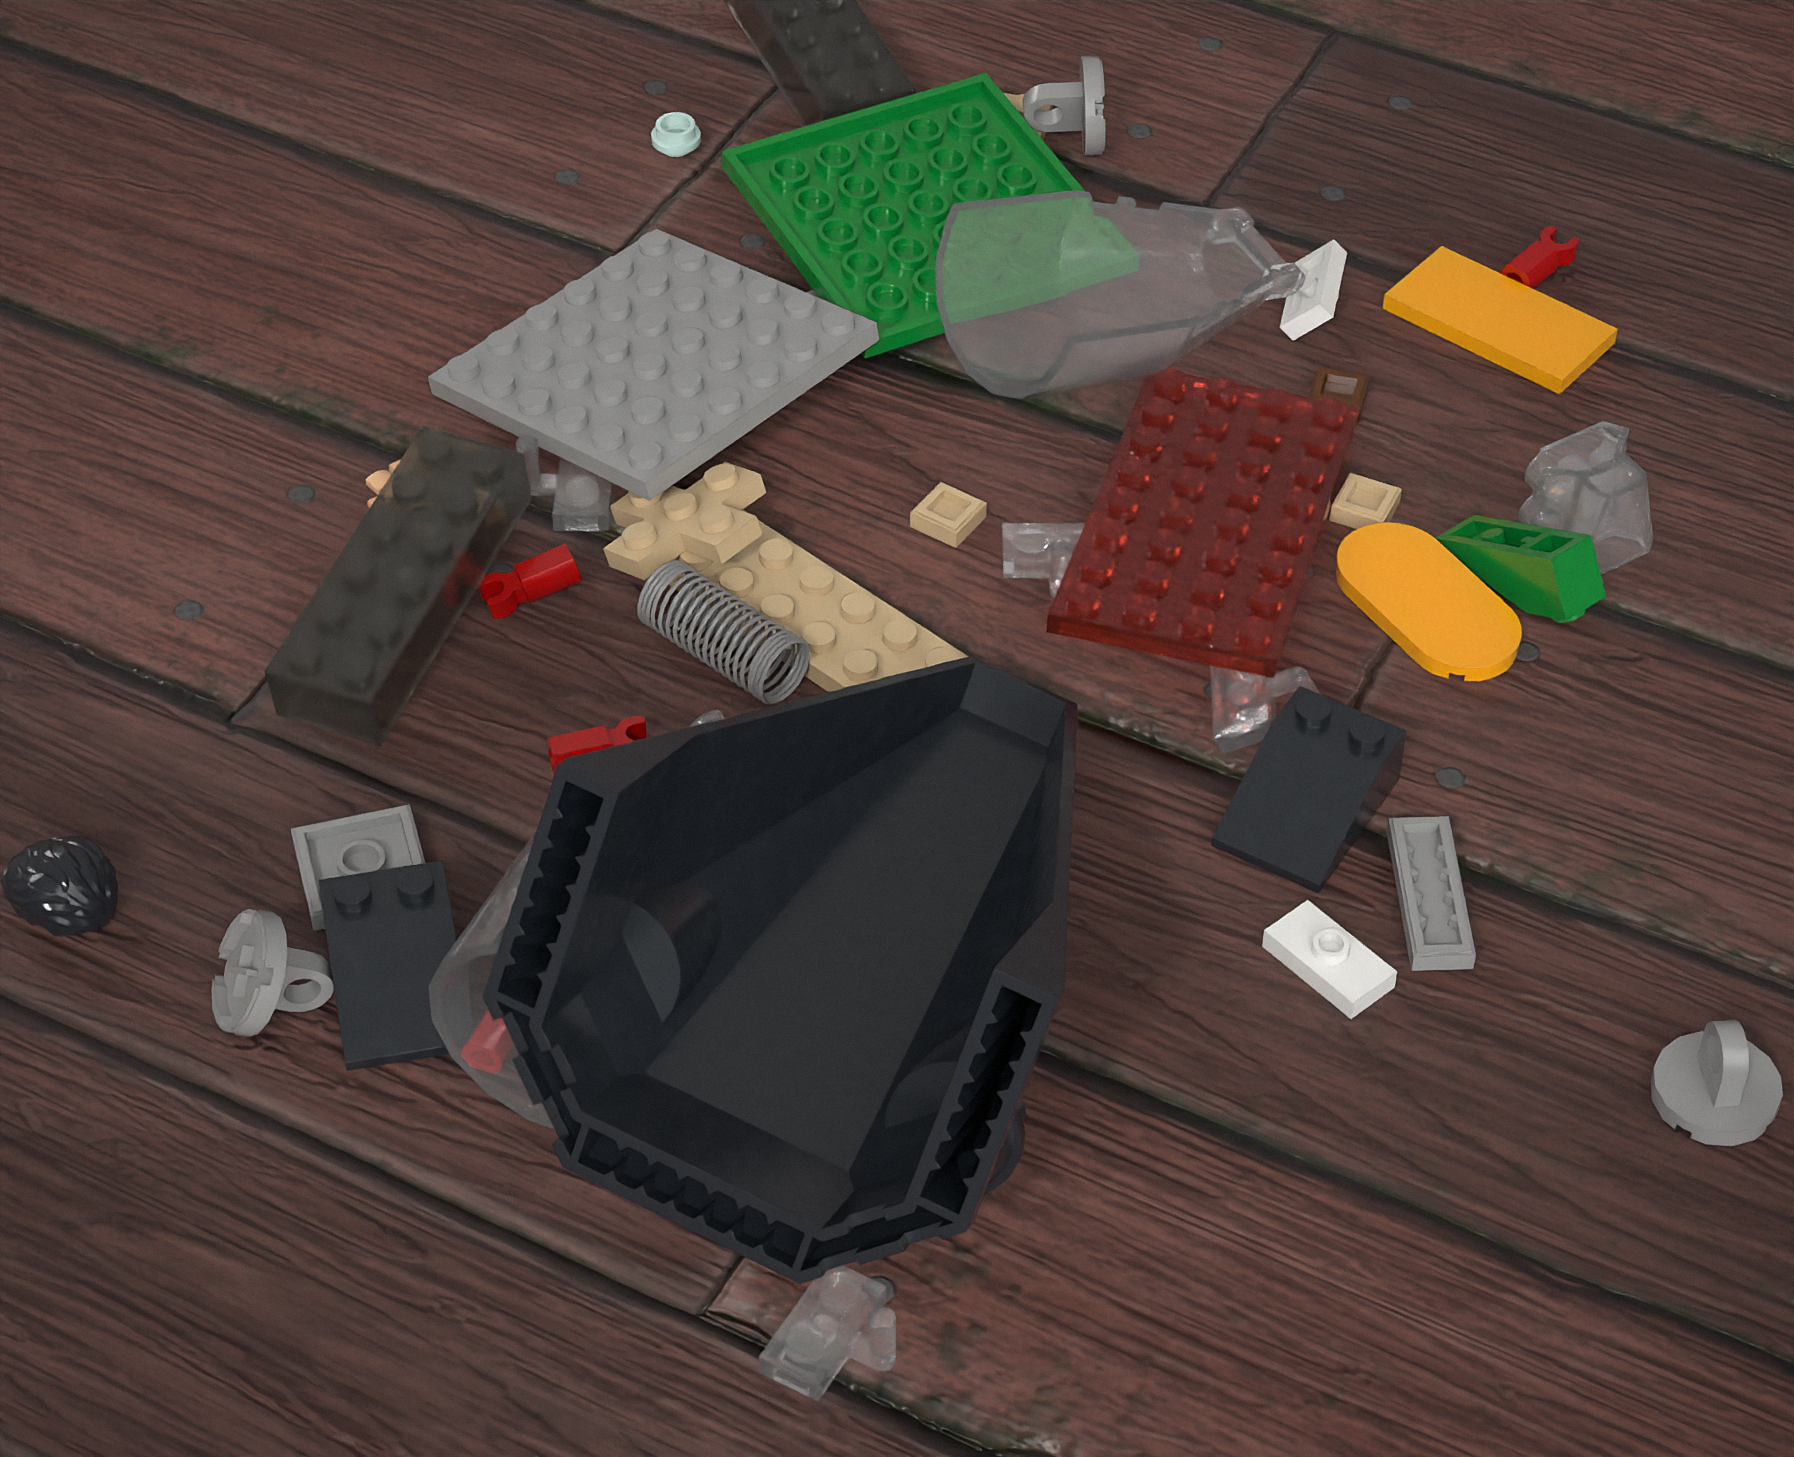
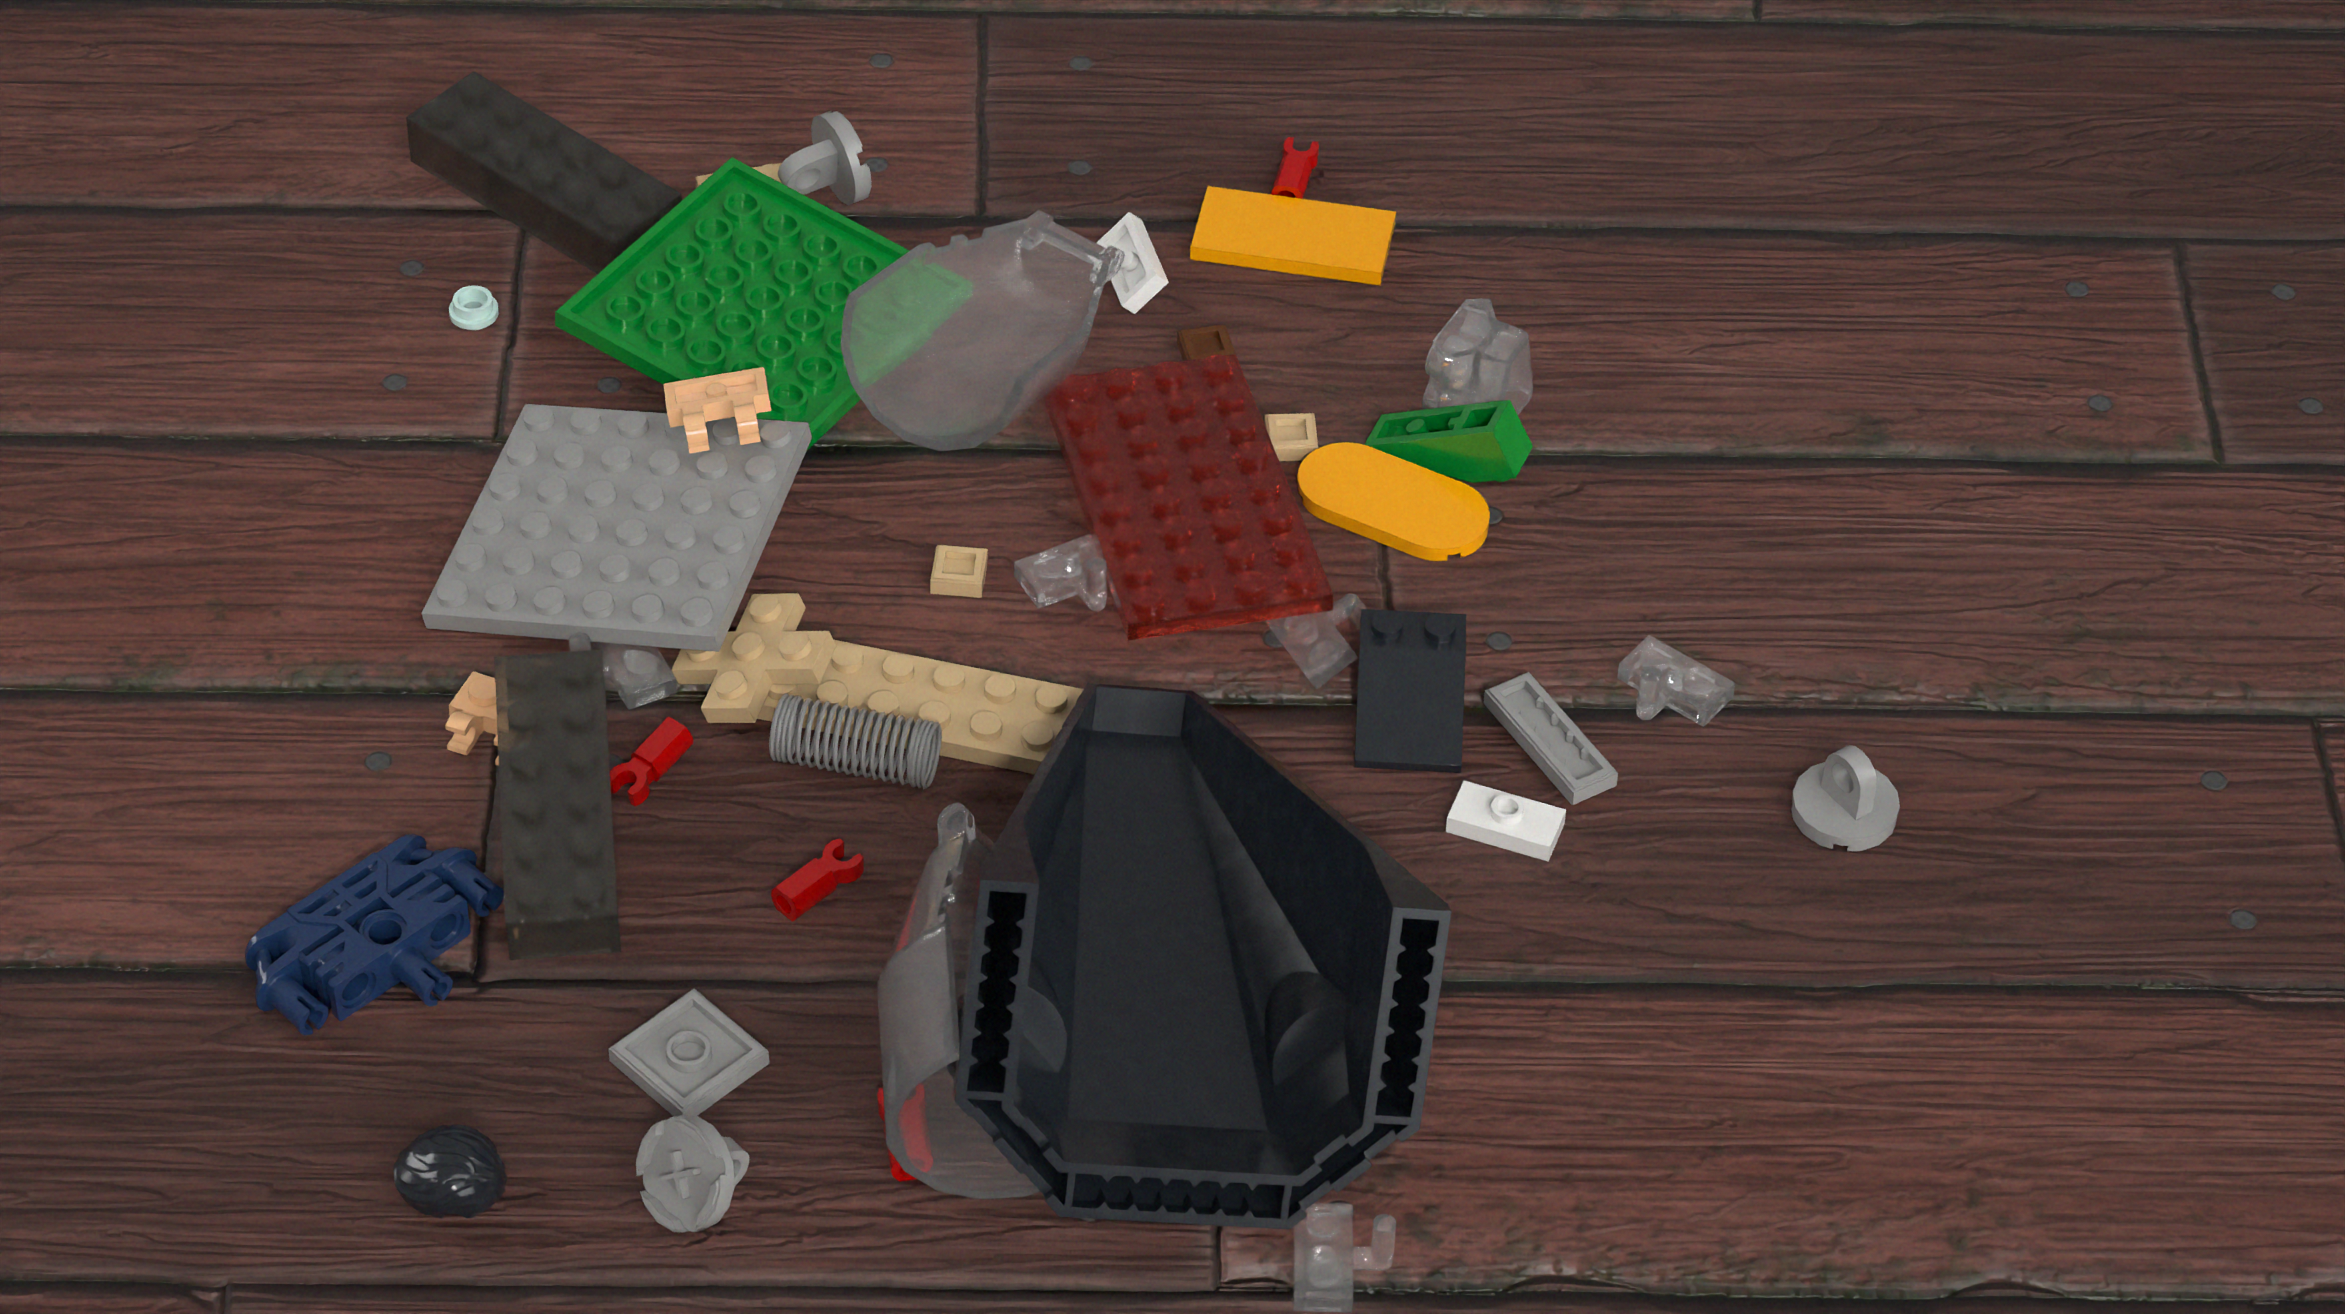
camera: 30 degrees left, 0 degrees up
(159, 637) = (370, 933): none -> dark blue piece
(384, 948) = (790, 1119): black slope -> none
(807, 271) = (715, 398): none -> light nougat plate
(1604, 879) = (1674, 681): none -> clear plate

